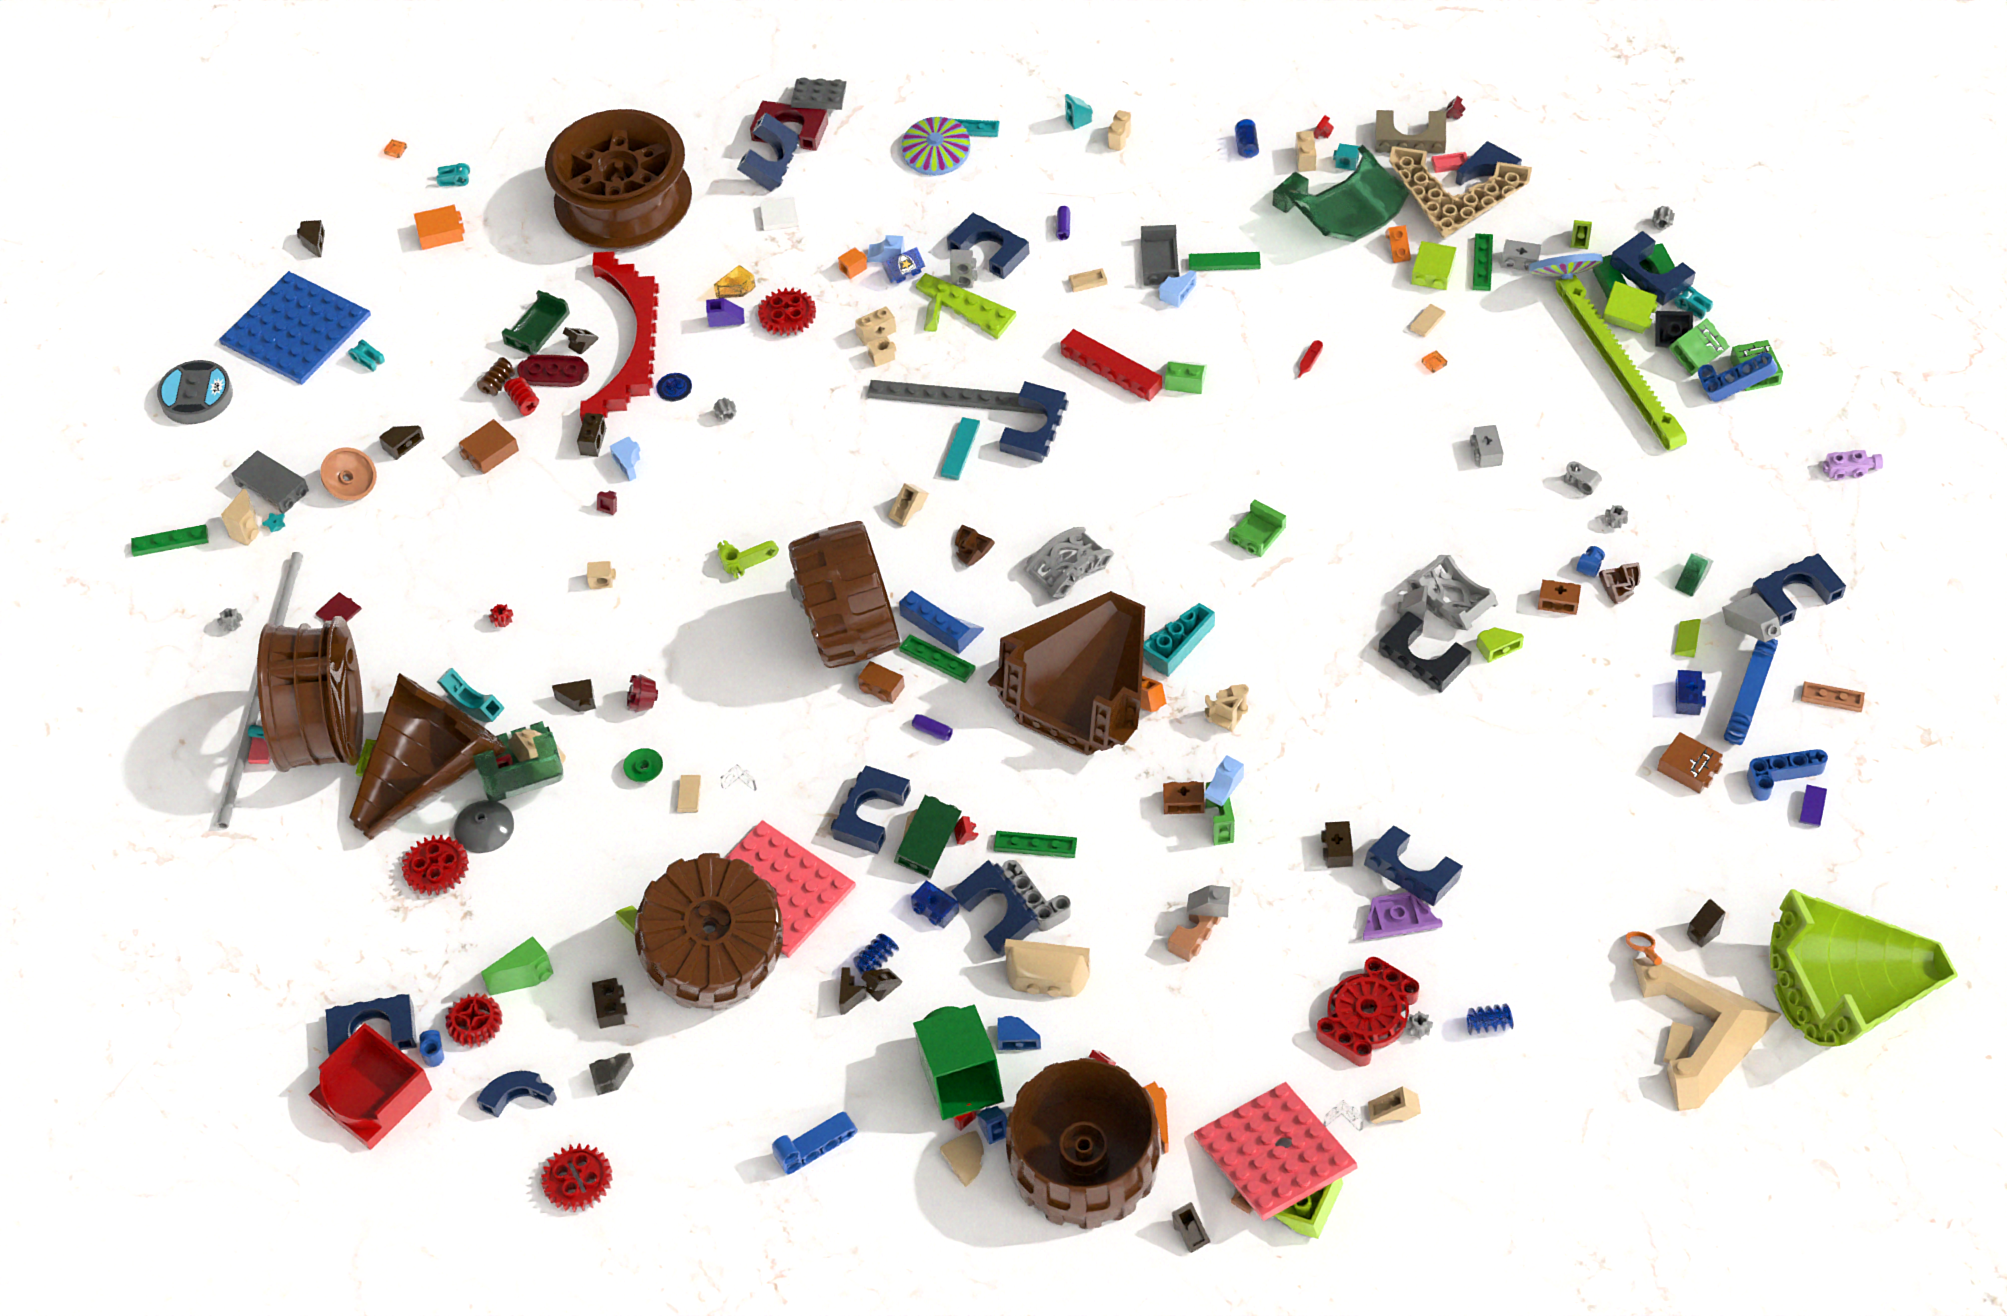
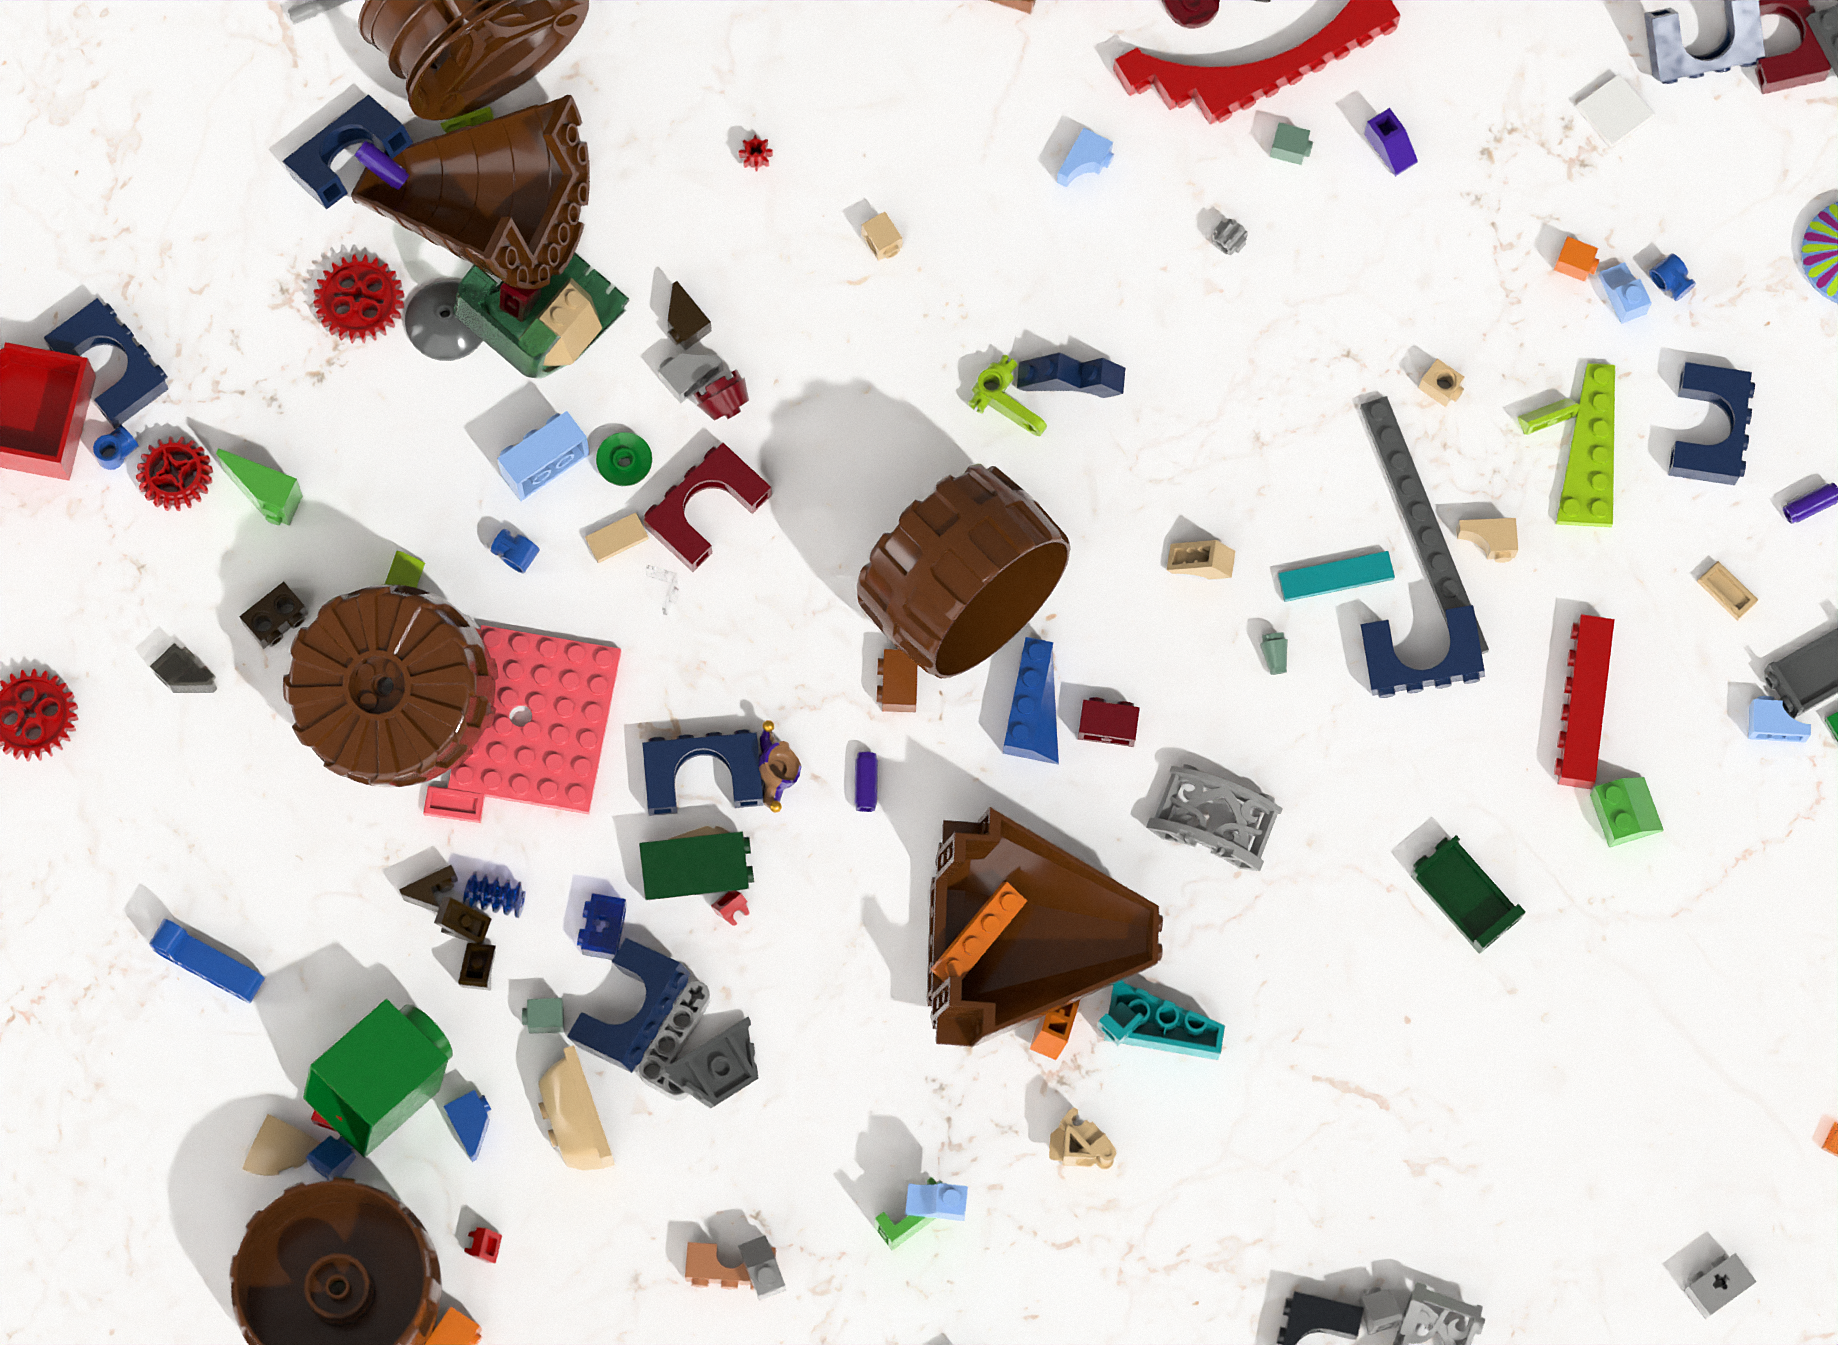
camera: 55 degrees right, 20 degrees up
(324, 810) = (364, 121): none -> dark blue arch
(360, 809) = (381, 165): none -> dark purple piece
(477, 705) = (610, 193): teal arch -> none
(511, 1086) = (98, 562): dark blue arch -> none
(591, 434) = (1096, 92): dark brown brick -> none
(607, 502) = (1001, 176): dark red tile -> none
(610, 803) = (543, 455): none -> light blue brick
(612, 709) = (688, 373): none -> light grey slope
(661, 848) = (515, 551): none -> blue piece
(674, 387) = (1240, 147): clear blue piece -> none
(690, 359) = (1291, 144): none -> sand green brick
(701, 757) = (719, 470): none -> dark red arch
(735, 283) = (1453, 125): clear yellow slope -> none
(750, 519) = (1065, 373): none -> dark blue arch
(787, 311) = (1421, 232): red gear -> none
(800, 956) = (454, 804): none -> coral tile
(875, 325) = (1480, 351): tan brick -> none
(892, 226) = (1672, 276): none -> blue piece
(894, 765) = (777, 767): none -> medium nougat piece
(903, 265) = (1606, 330): clear blue brick -> none
(919, 984) = (477, 966): none -> dark brown slope
(937, 658) = (979, 730): green tile -> none
(962, 268) = (1639, 413): light grey brick -> none
(972, 545) = (1181, 678): reddish brown brick -> none
(972, 961) = (544, 1015): none -> sand green brick
(976, 590) = (1108, 722): none -> dark red brick
(986, 493) = (1275, 652): none -> sand green cone
(988, 365) = (1494, 536): none -> tan arch
(1035, 844) = (759, 1003): green tile -> none
(1064, 878) = (717, 1066): none -> dark grey wing
(1067, 700) = (979, 933): none -> orange plate
(1168, 651) = (1119, 1023): none -> teal panel
(1184, 797) = (906, 1143): dark orange brick -> none
(1189, 467) = (1466, 894): none -> dark green panel
(1258, 529) = (1405, 1039): bright green panel -> none
(1310, 357) = (1753, 965): red piece -> none

